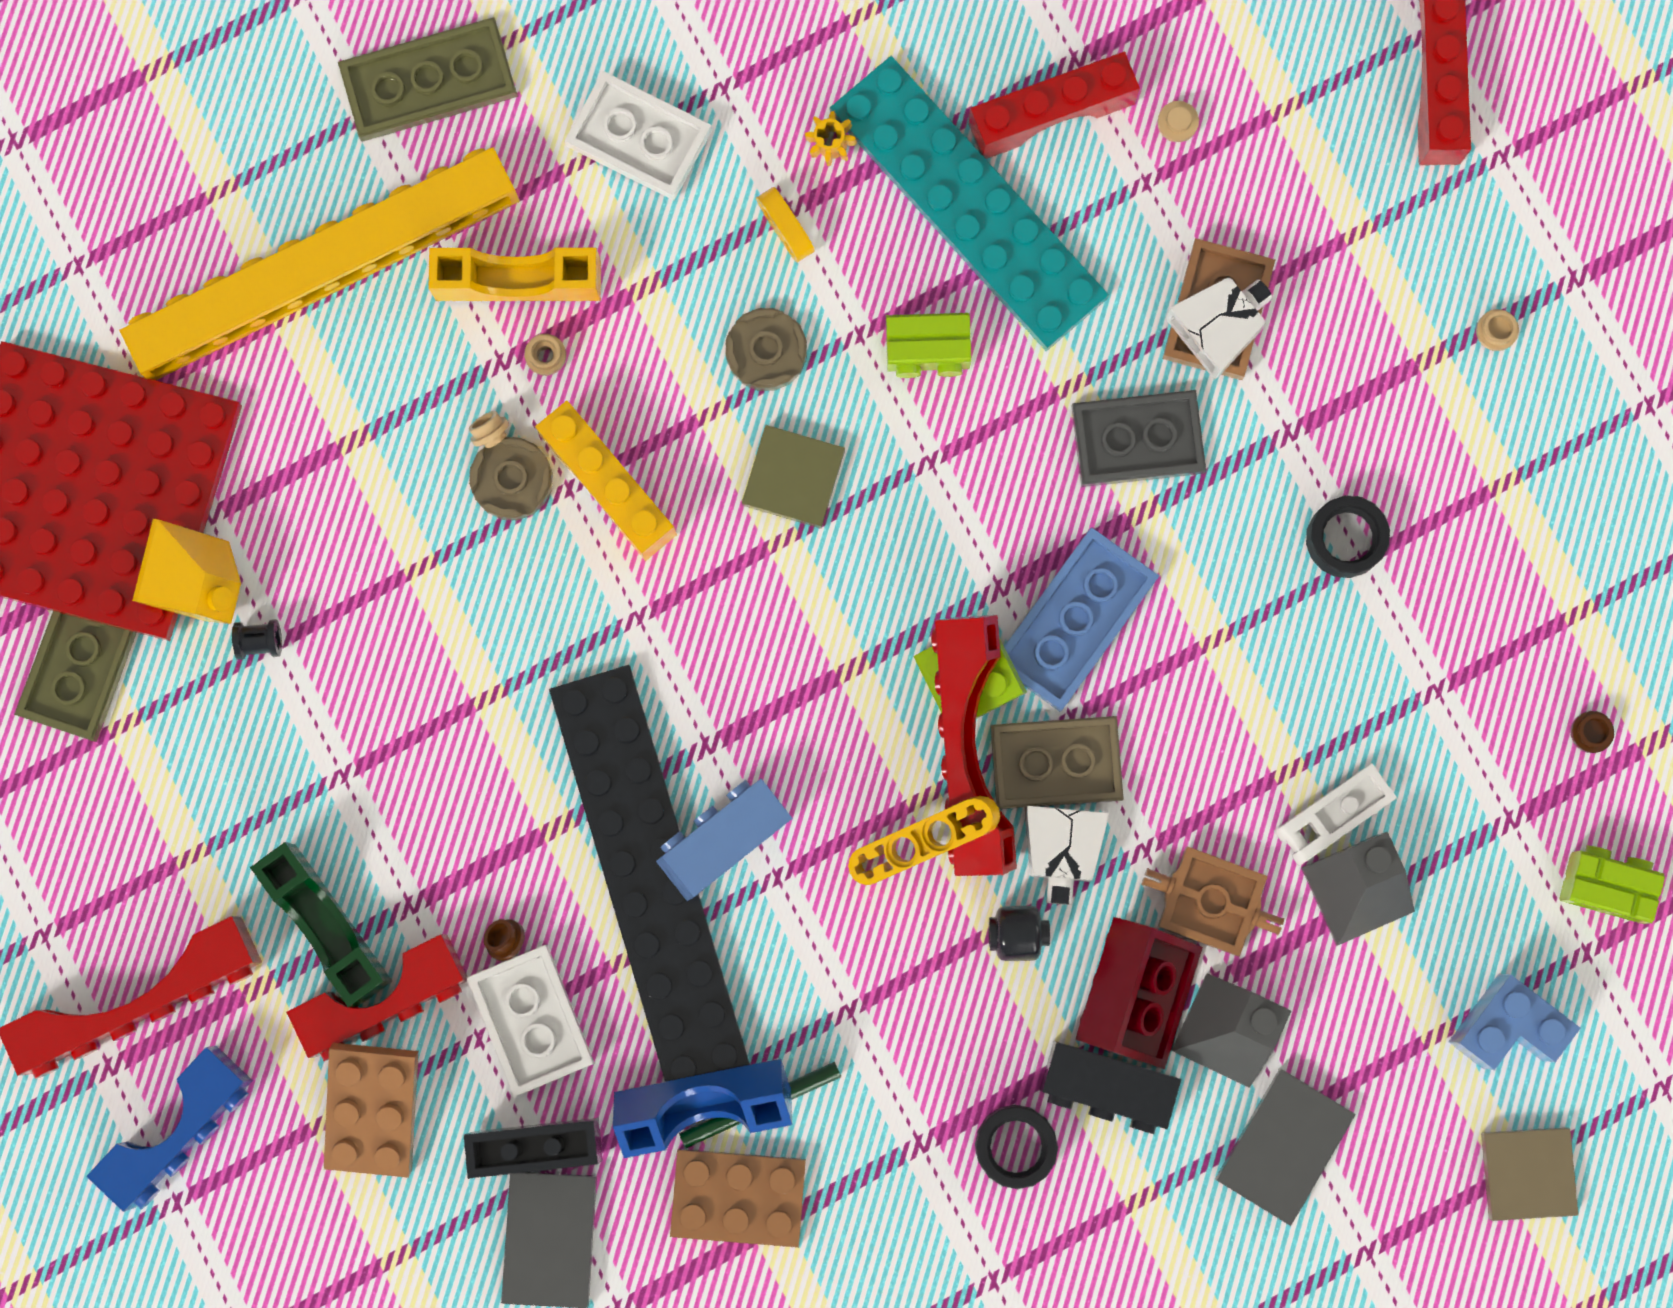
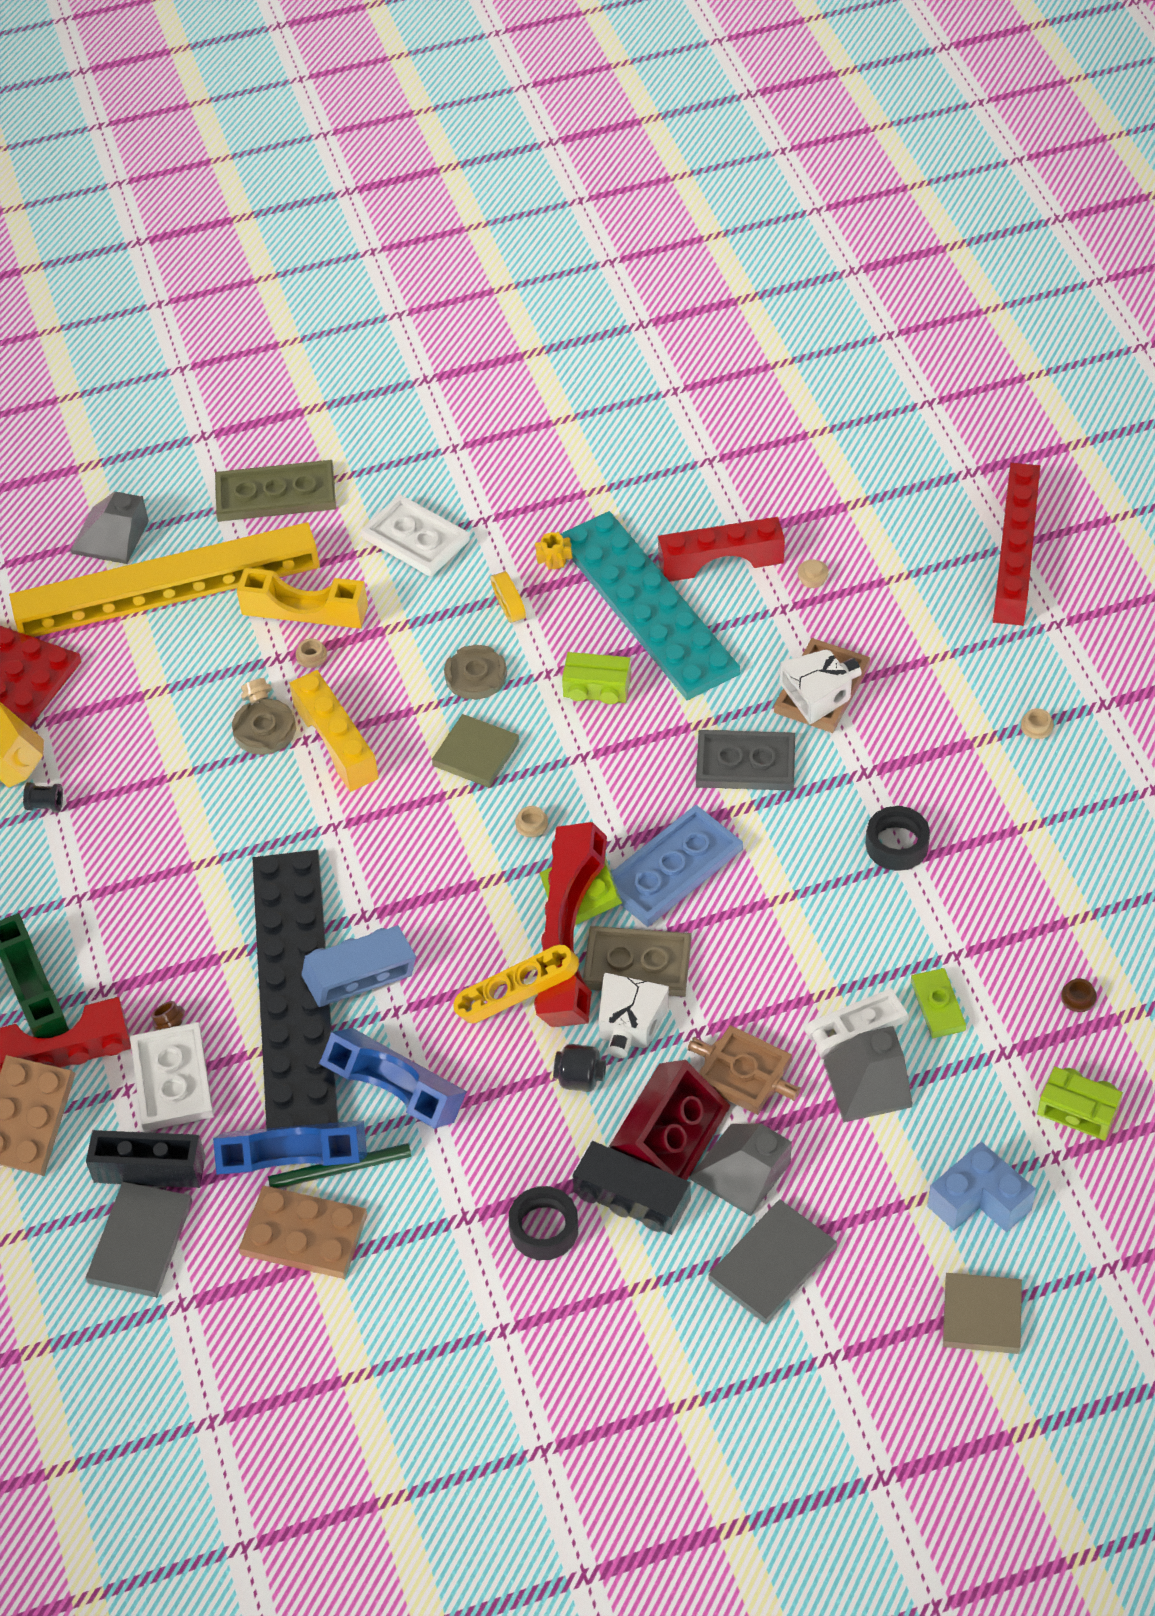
camera: 10 degrees right, 30 degrees down
(221, 184) = (112, 528): none -> slope
(760, 966) = (366, 1060): none -> blue arch
(887, 579) = (531, 821): none -> tan plate
(1427, 767) = (938, 1003): none -> lime plate

